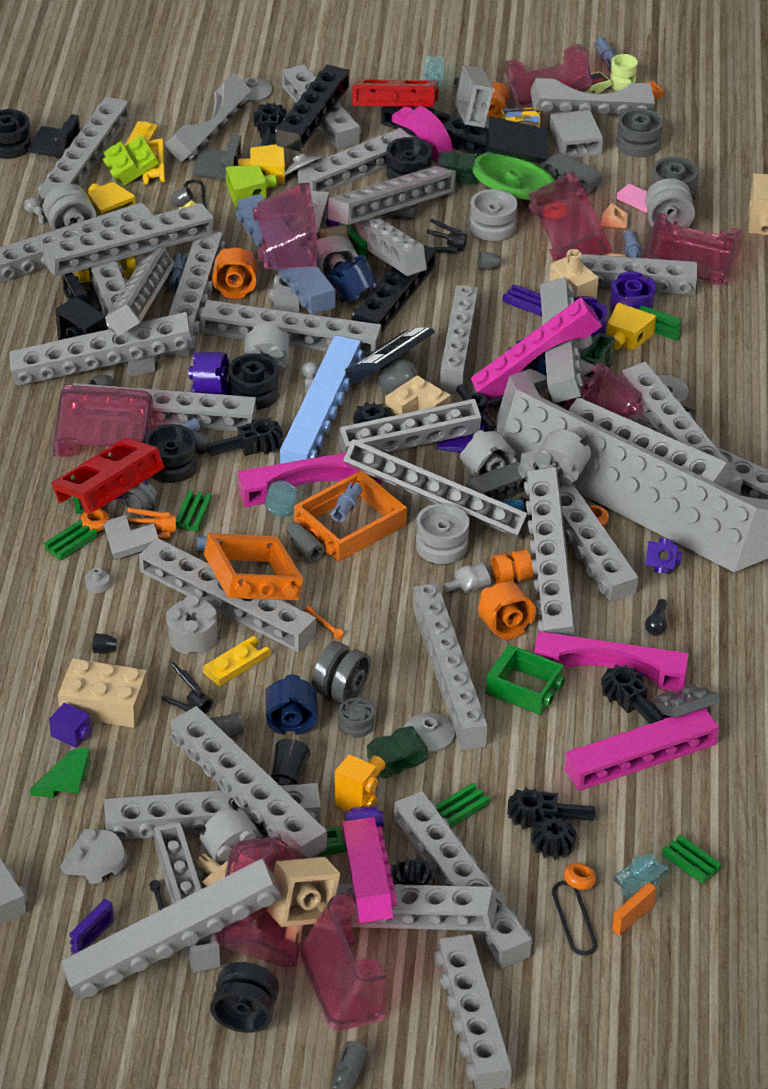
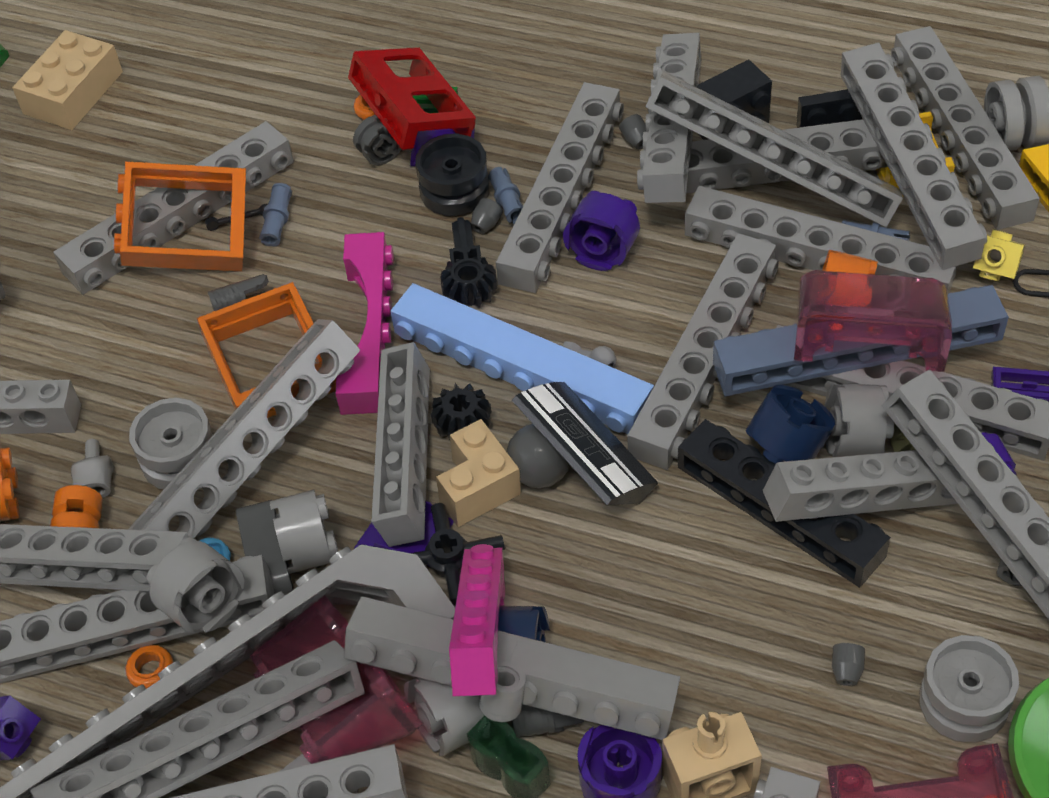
camera: 110 degrees right, 10 degrees up
(68, 537) = (327, 75): green tile -> none
(70, 725) = (31, 47): dark purple brick -> none
(97, 580) = (265, 99): light grey tile -> none
(101, 417) = (528, 115): clear pink windscreen -> none
(103, 643) = (155, 92): black hose -> none
(126, 541) = (318, 126): light grey tile -> none
(163, 521) = (332, 163): orange plant -> none
(185, 507) = (357, 196): green tile -> none
(192, 625) = (129, 146): light grey brick -> none
(196, 697) = (18, 159): black plant -> none
(235, 661) = (70, 205): yellow hinge -> none
(254, 377) = (582, 281): black wheel -> none
(268, 341) = (642, 300): light grey brick -> none
(281, 498) = (323, 277): clear light blue piece -> none
(338, 633) = (71, 314): orange hinge -> none
(346, 502) = (262, 331): sand blue pin -> none
(455, 240) = (912, 622): black plant -> none
(458, 338) = (627, 564): light grey brick -> none
(524, 299) = (747, 680): dark purple tile -> none

